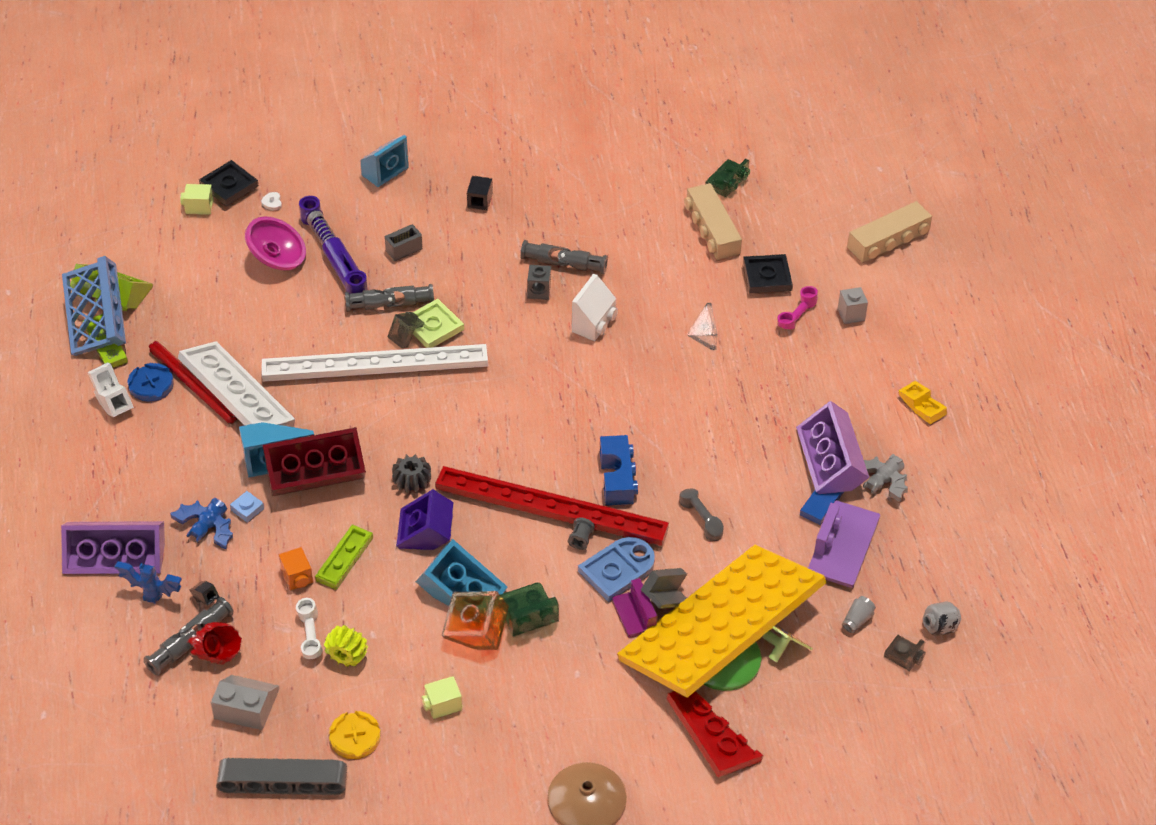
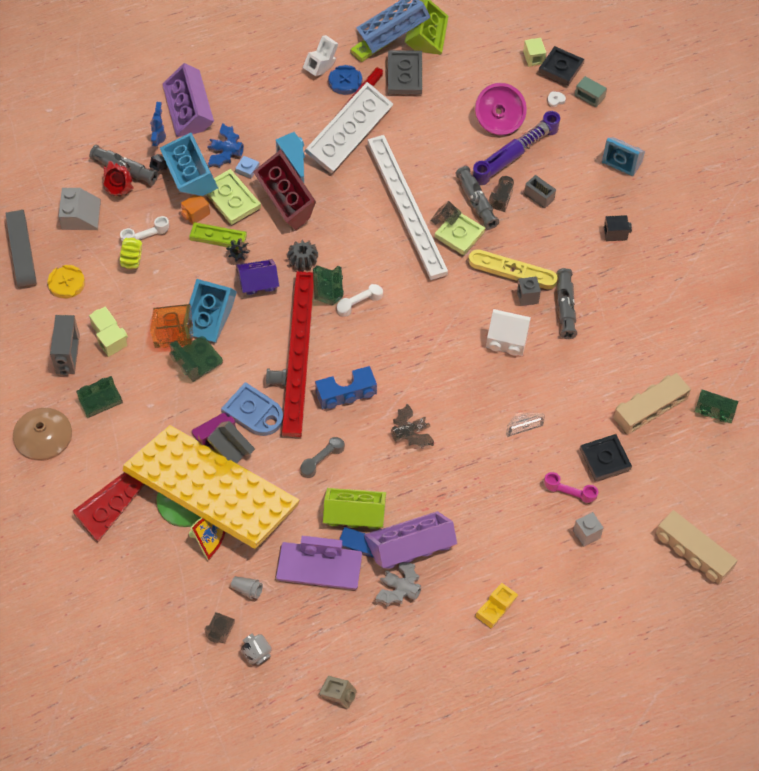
camera: 75 degrees right, 10 degrees up
(169, 321) = (404, 72): none -> dark grey plate
(234, 551) = (188, 166): none -> dark azure slope
(279, 167) = (590, 91): none -> sand green piece
(290, 529) = (233, 197): none -> yellowish green plate
(380, 534) = (242, 247): none -> black gear
(393, 273) = (504, 192): none -> clear smoke leg
(466, 454) = (328, 284): none -> clear green bracket
(471, 738) = (65, 344): none -> dark grey window
(473, 692) = (112, 339): none -> yellowish green brick
(491, 301) = (501, 266): none -> light yellow piece
(499, 447) = (344, 306): none -> white bar
(554, 723) = (99, 396): none -> clear green bracket
(687, 426) = (408, 430): none -> clear smoke animal
(778, 493) = (354, 508): none -> lime slope
(1003, 555) = (339, 691): none -> dark tan bracket

